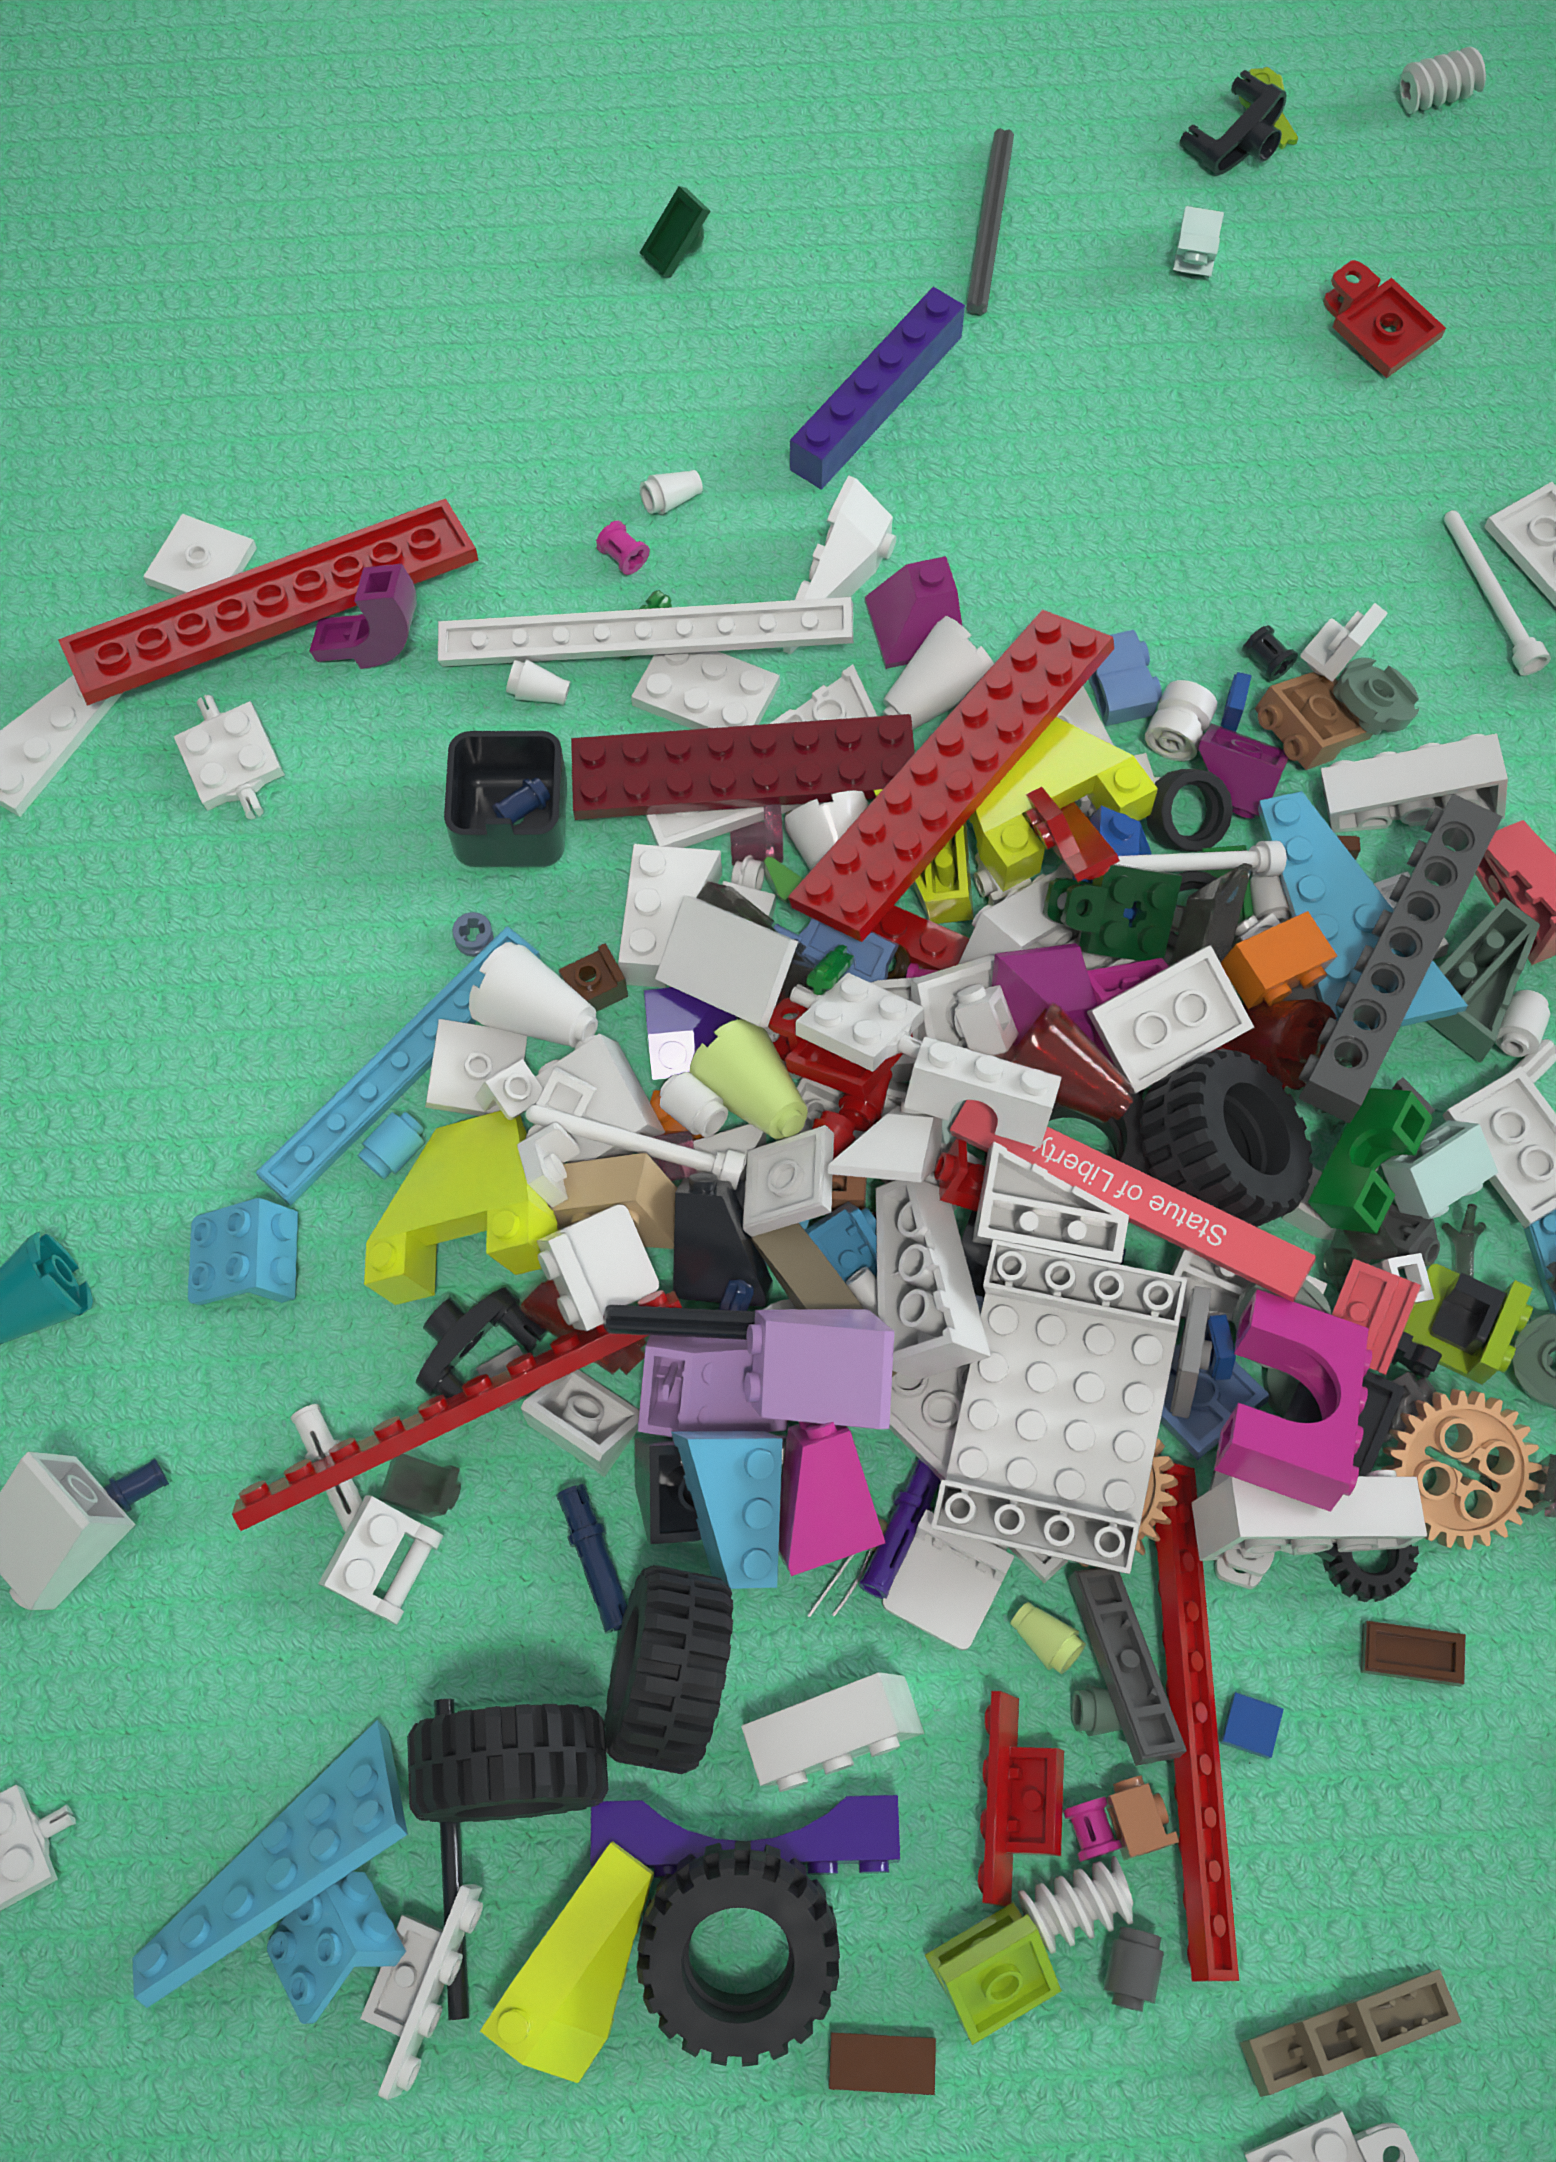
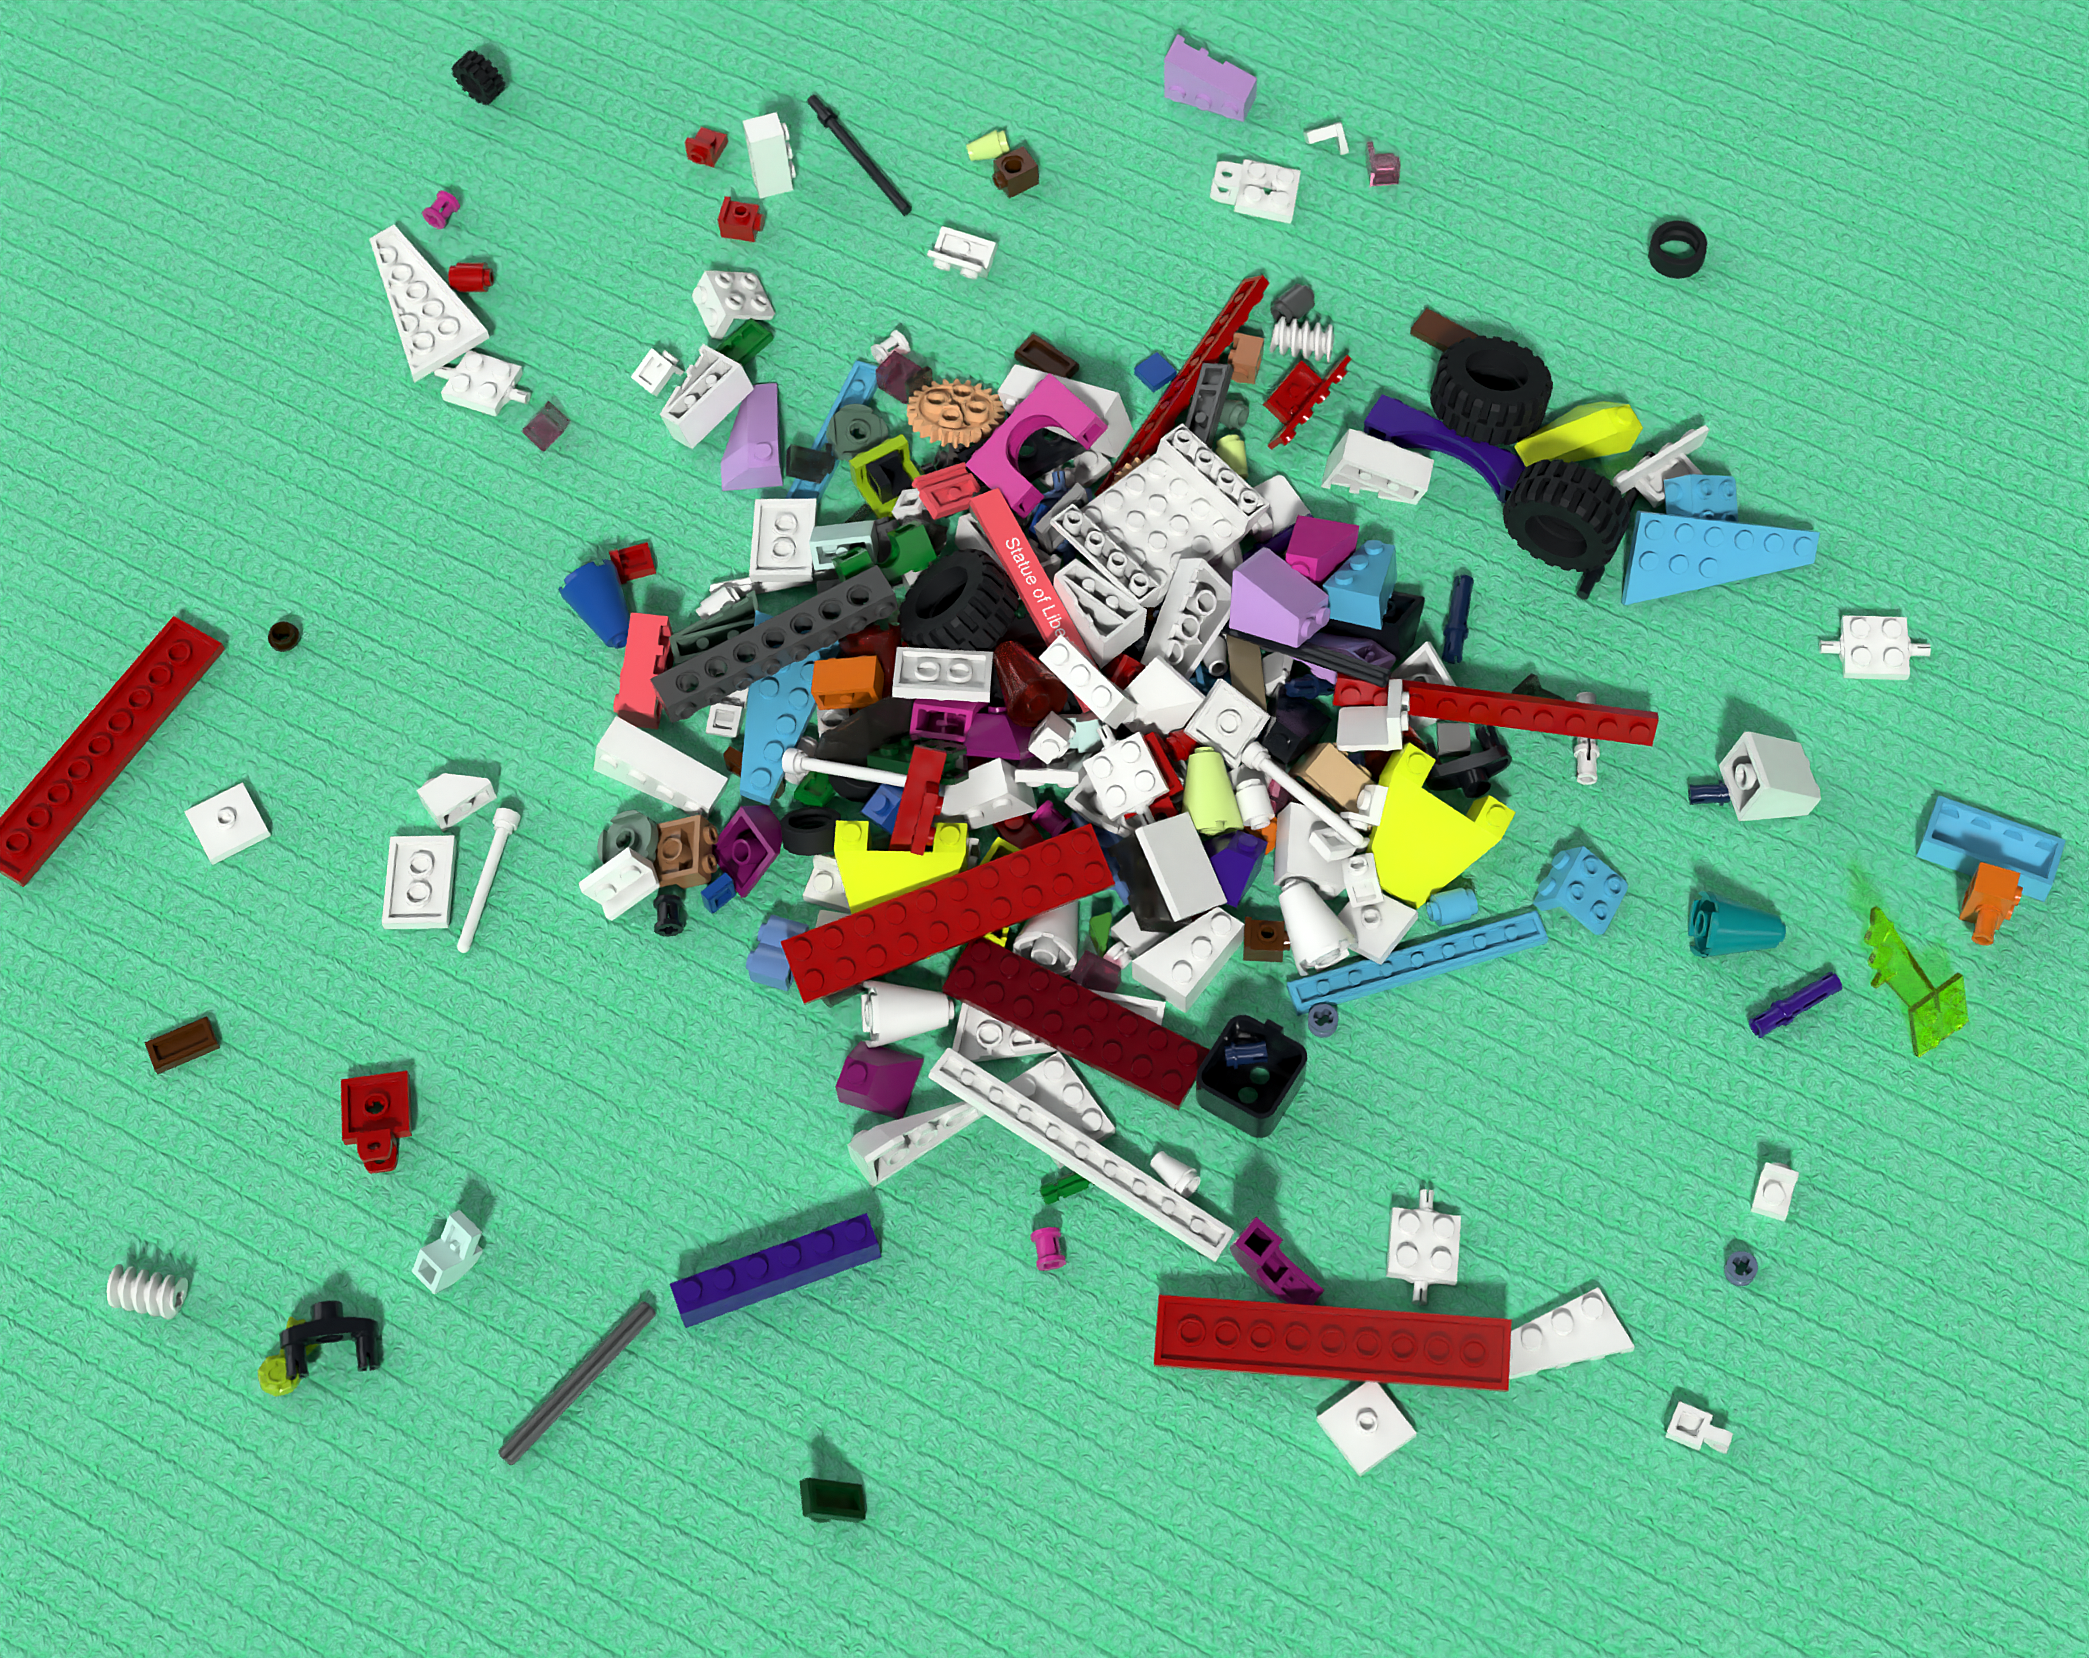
camera: 145 degrees left, 5 degrees down
(367, 1552) = (1586, 681): white plate -> none
(669, 490) = (983, 1277): white cone -> none
(669, 1670) = (1453, 514): black tyre -> none
(830, 970) = (1120, 828): green axle -> none
(994, 1972) = (1365, 339): lime bracket -> none
(1080, 1817) = (1271, 367): dark pink bush -> none
(1180, 720) = (769, 895): white wheel -> none
(1350, 2032) = (1204, 235): dark tan slope -> none

